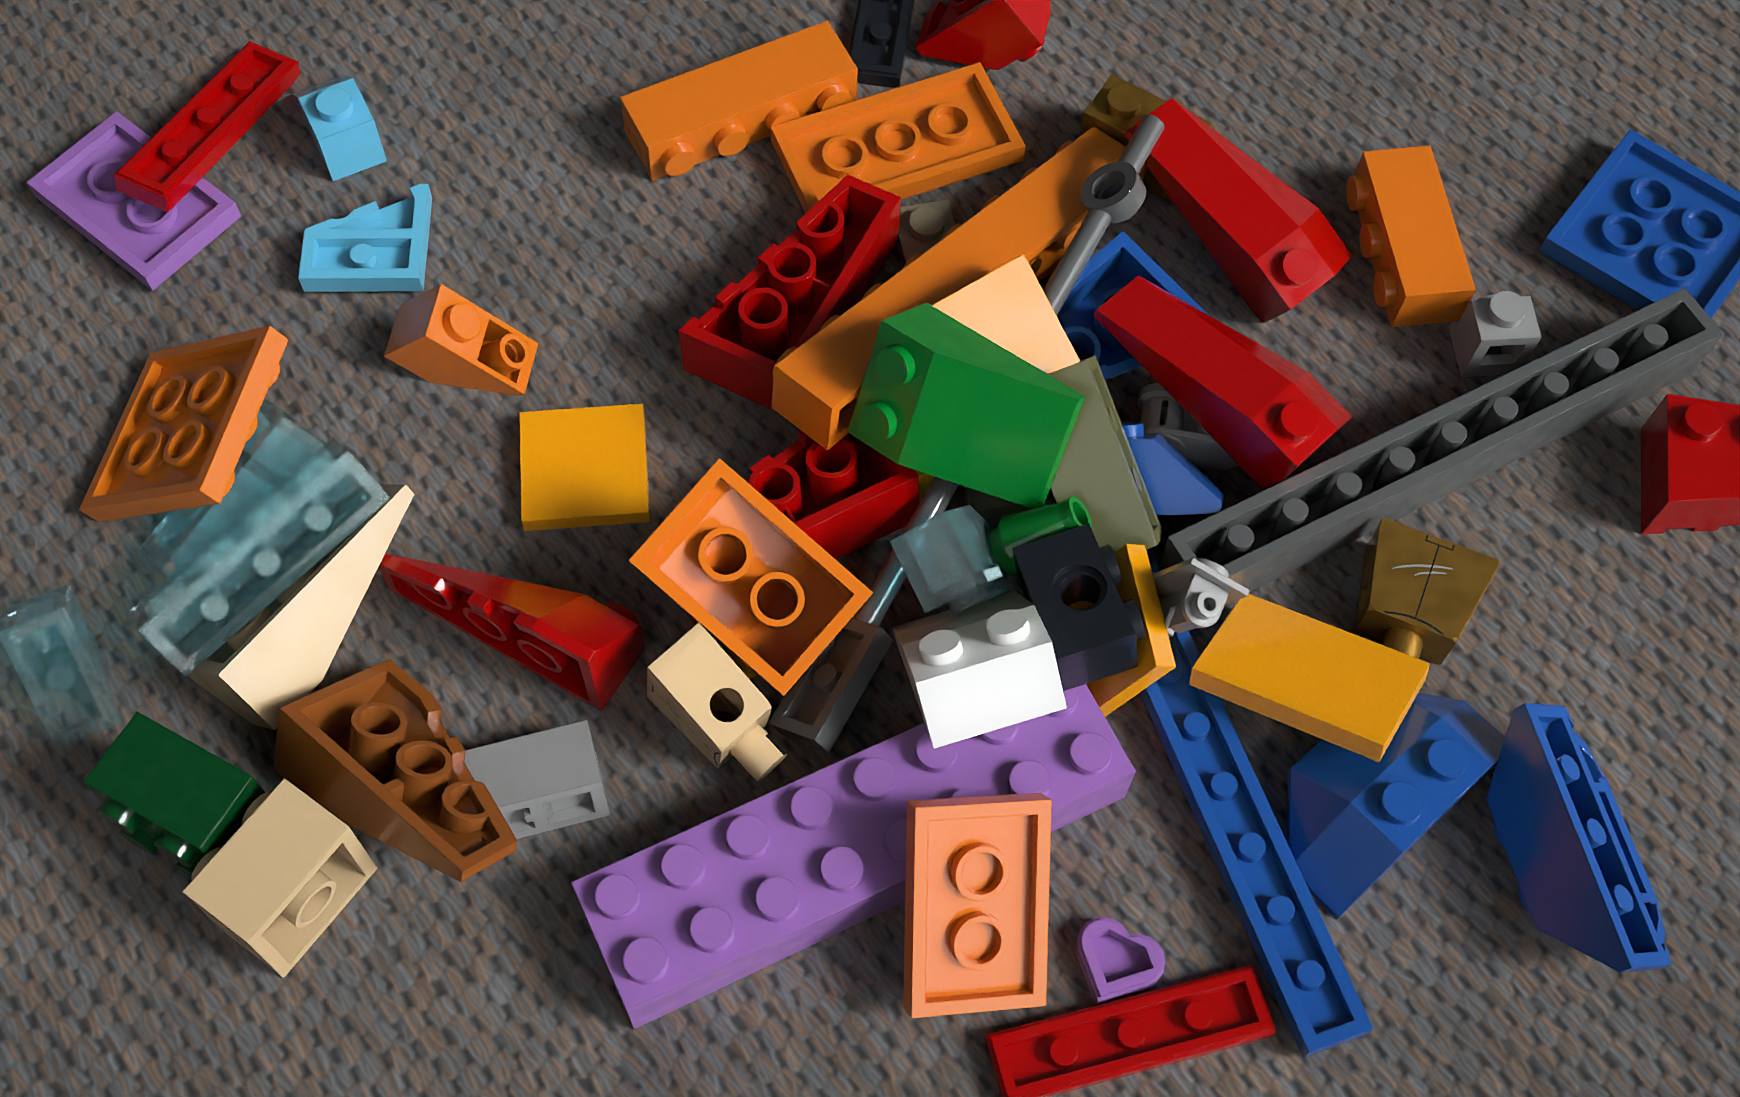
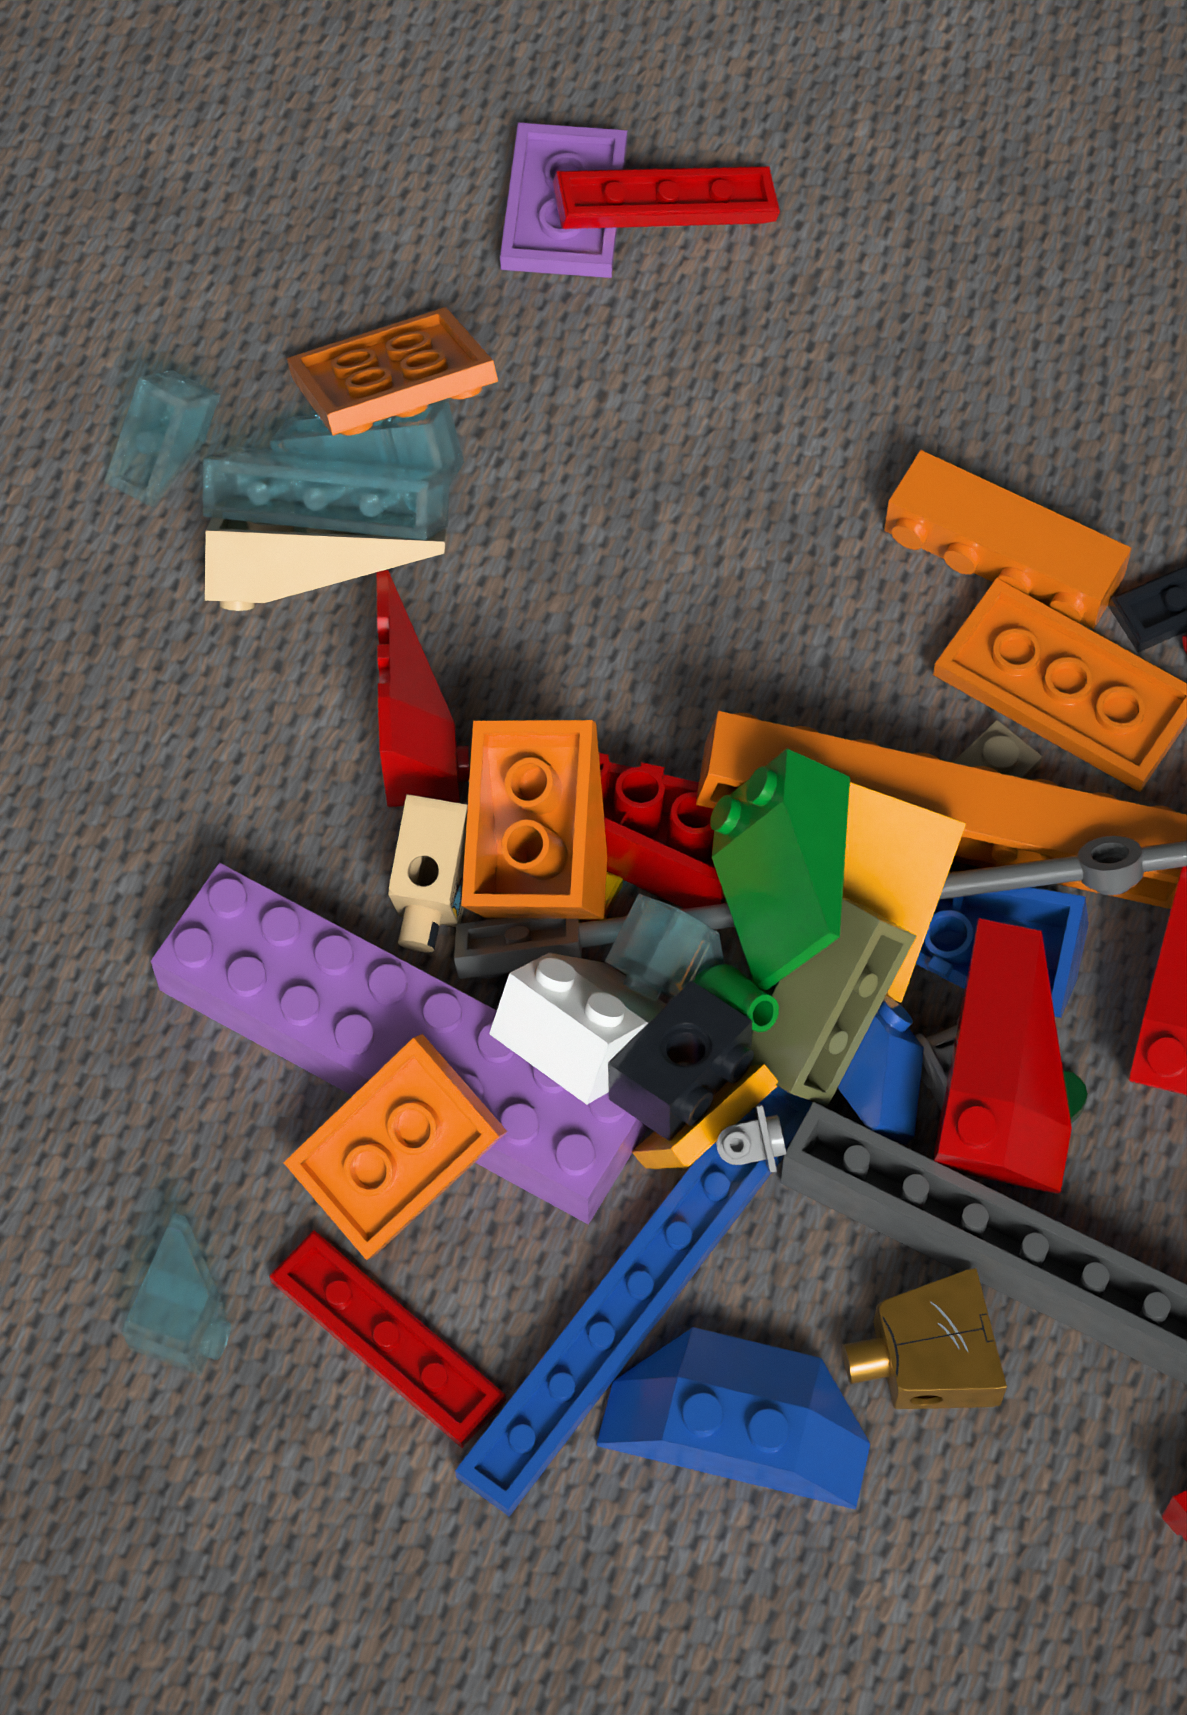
camera: 60 degrees right, 0 degrees up
(170, 793) = (107, 584): dark green brick -> none
(281, 876) = (96, 681): tan brick -> none
(341, 126) = (742, 279): medium azure slope -> none
(370, 248) = (652, 382): medium azure wing -> none
(388, 768) = (226, 691): dark orange wedge -> none
(460, 344) = (611, 502): orange slope -> none
(542, 778) = (288, 795): light grey hinge -> none
(583, 467) = (579, 656): light orange tile -> none
(793, 289) = (893, 700): red wedge -> none
(1116, 961) = (441, 1294): medium lavender tile -> none
(1310, 676) = (779, 1290): light orange tile -> none
(1572, 844) = (787, 1591): blue wedge -> none

